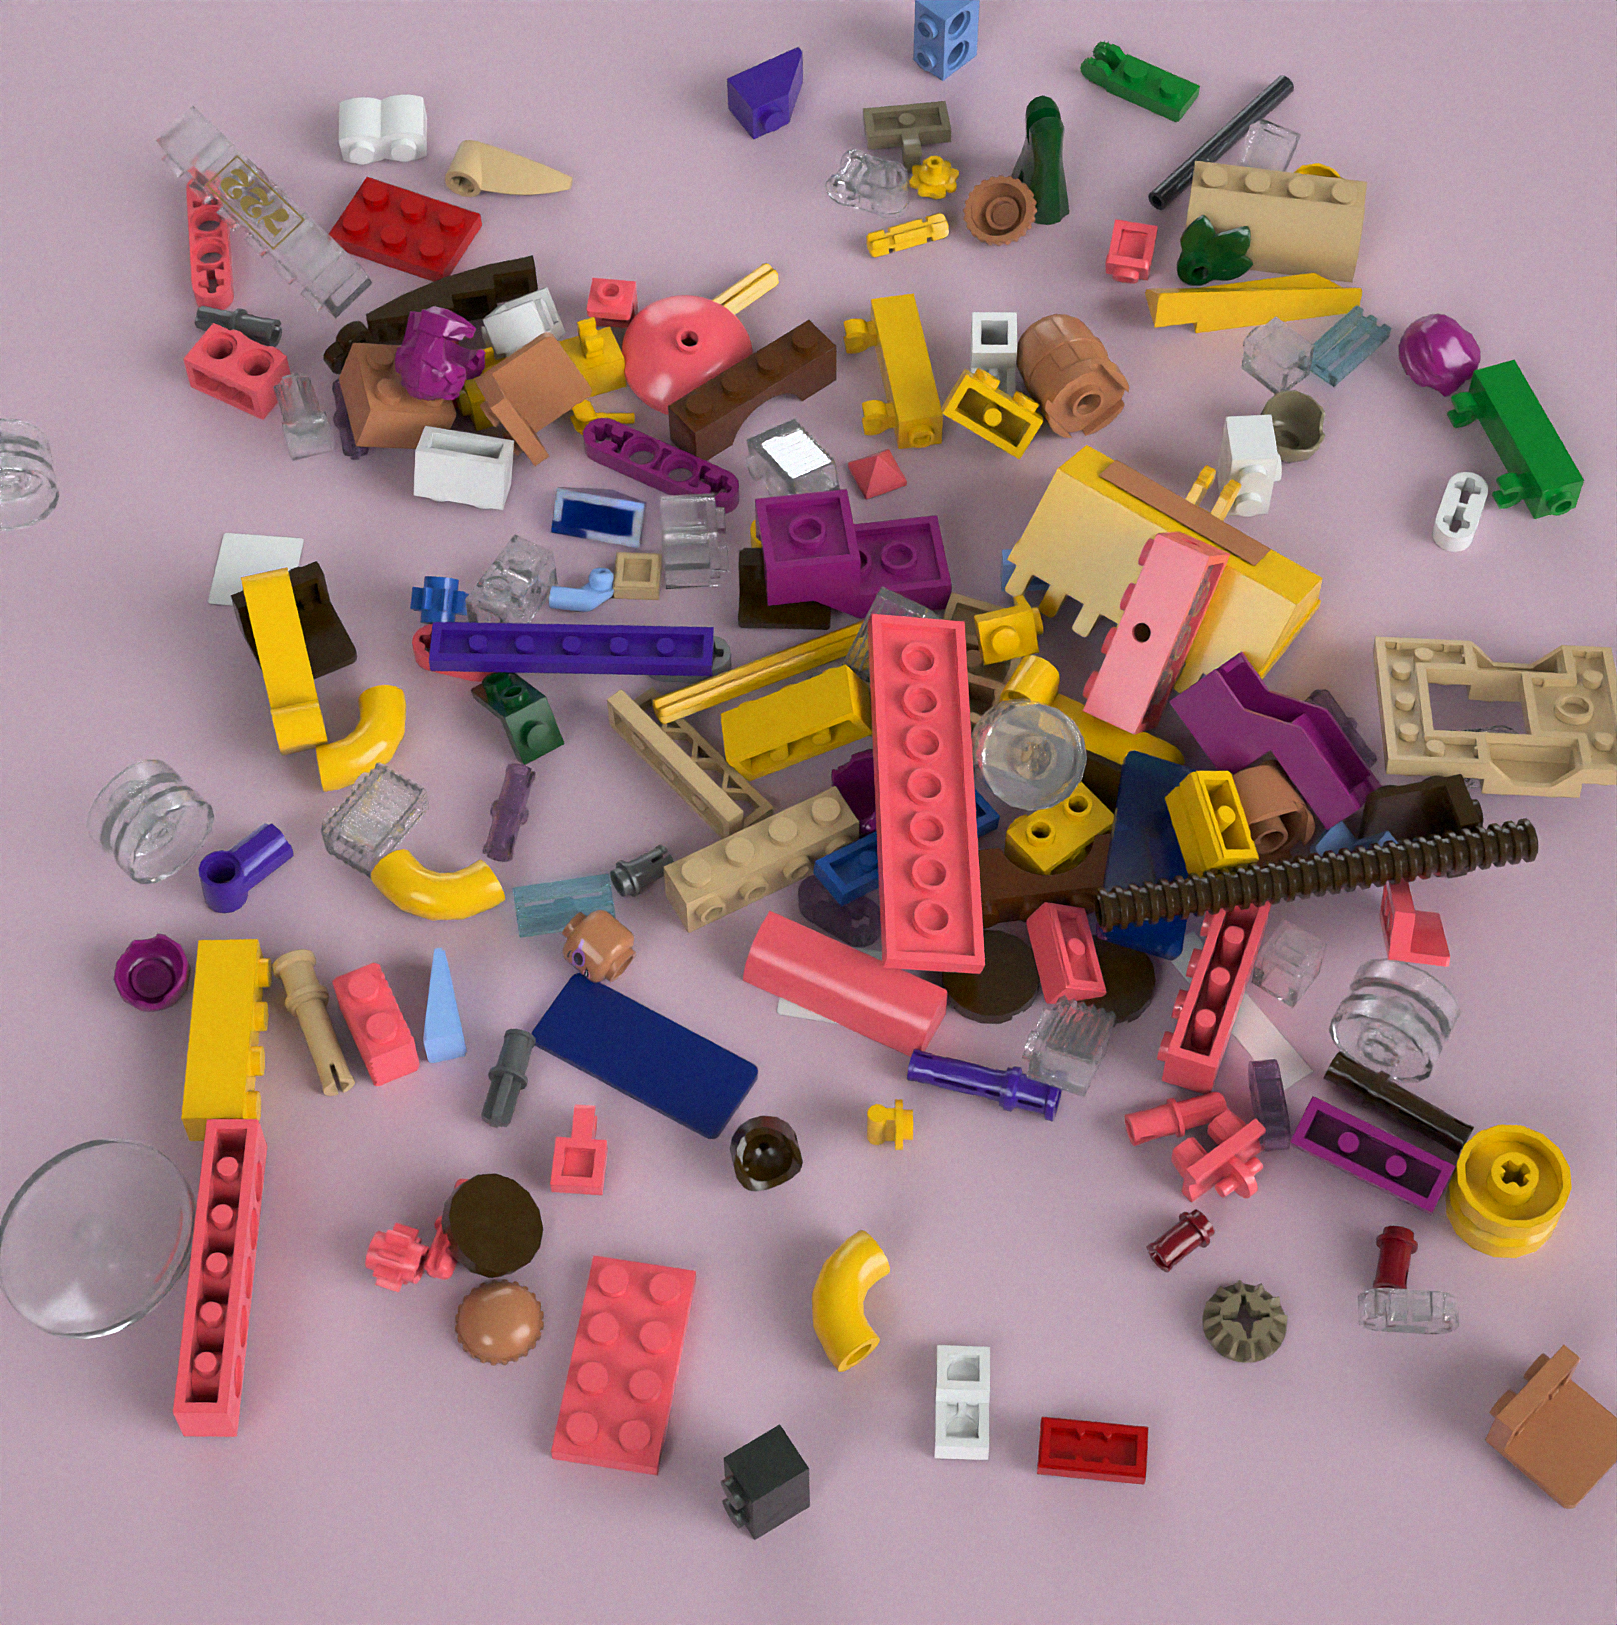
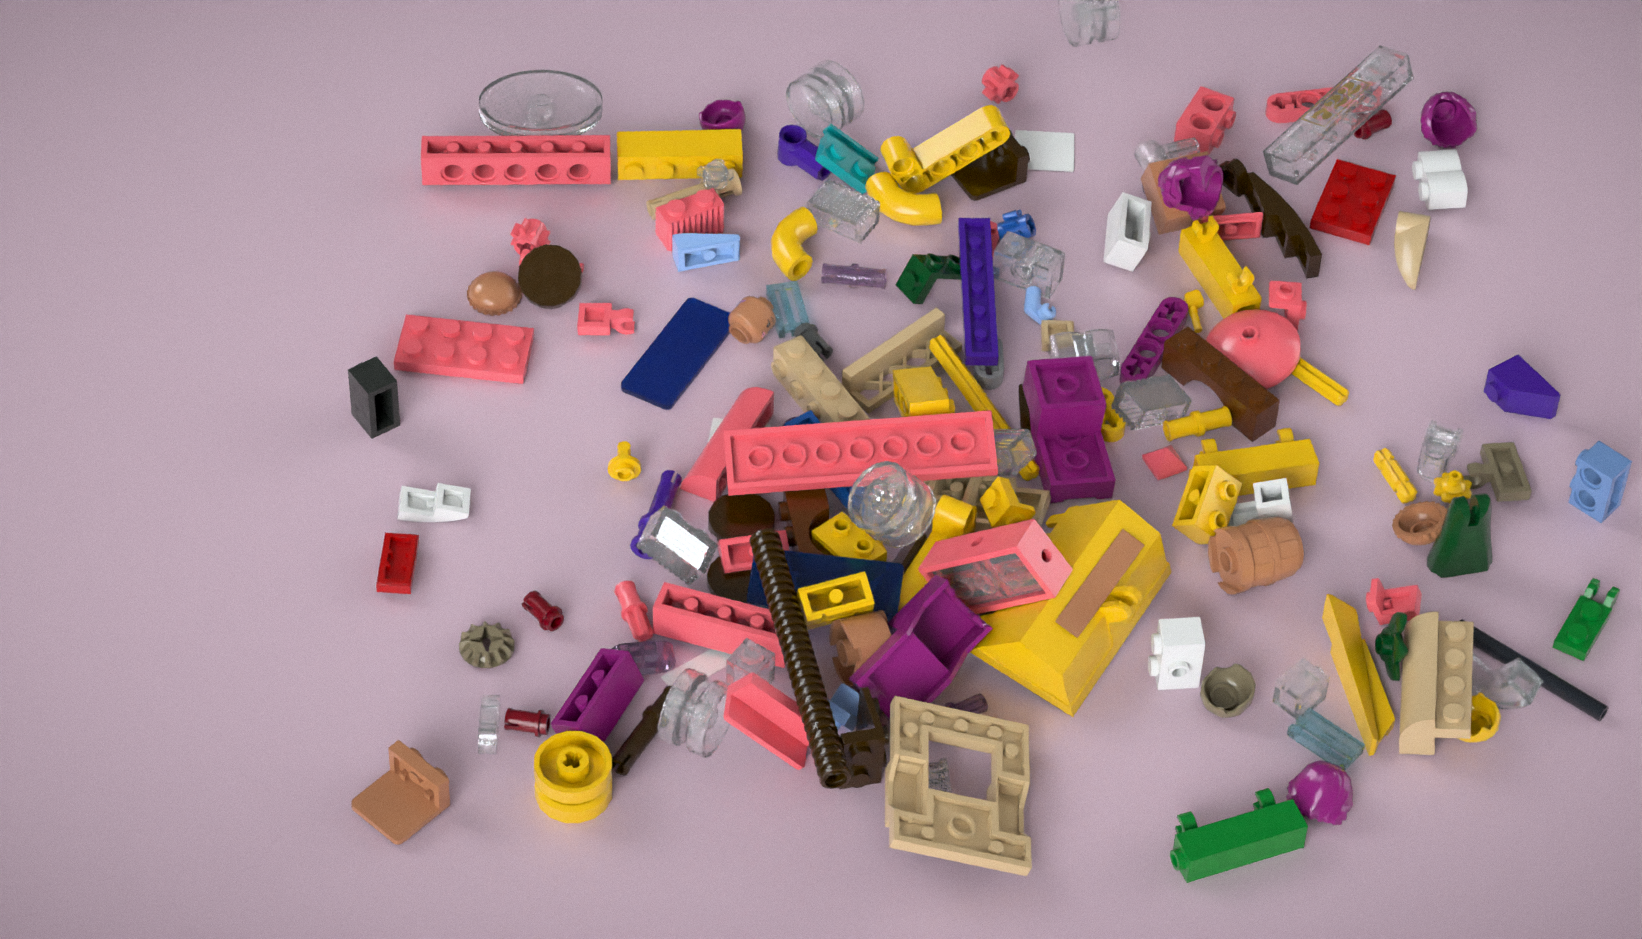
camera: 85 degrees right, 10 degrees down
(127, 604) = (1000, 84): none -> coral gear
(253, 327) = (1246, 122): dark grey axle -> none
(273, 806) = (846, 158): none -> teal plate
(275, 107) = (1448, 120): none -> magenta hair
(305, 986) = (715, 174): none -> clear plate
(508, 1078) = (657, 285): dark grey axle -> none
(521, 321) = (1255, 250): white window -> none
(531, 392) = (1182, 251): nougat bracket -> none
(599, 515) = (1108, 308): clear blue slope -> none
(765, 1153) = (601, 405): dark brown piece -> none
(816, 420) = (1197, 423): none -> yellow pin
(840, 1299) = (500, 439): yellow cylinder -> none
(1227, 1166) = (594, 630): coral hips -> none
(1453, 509) = (1166, 801): white beam -> none

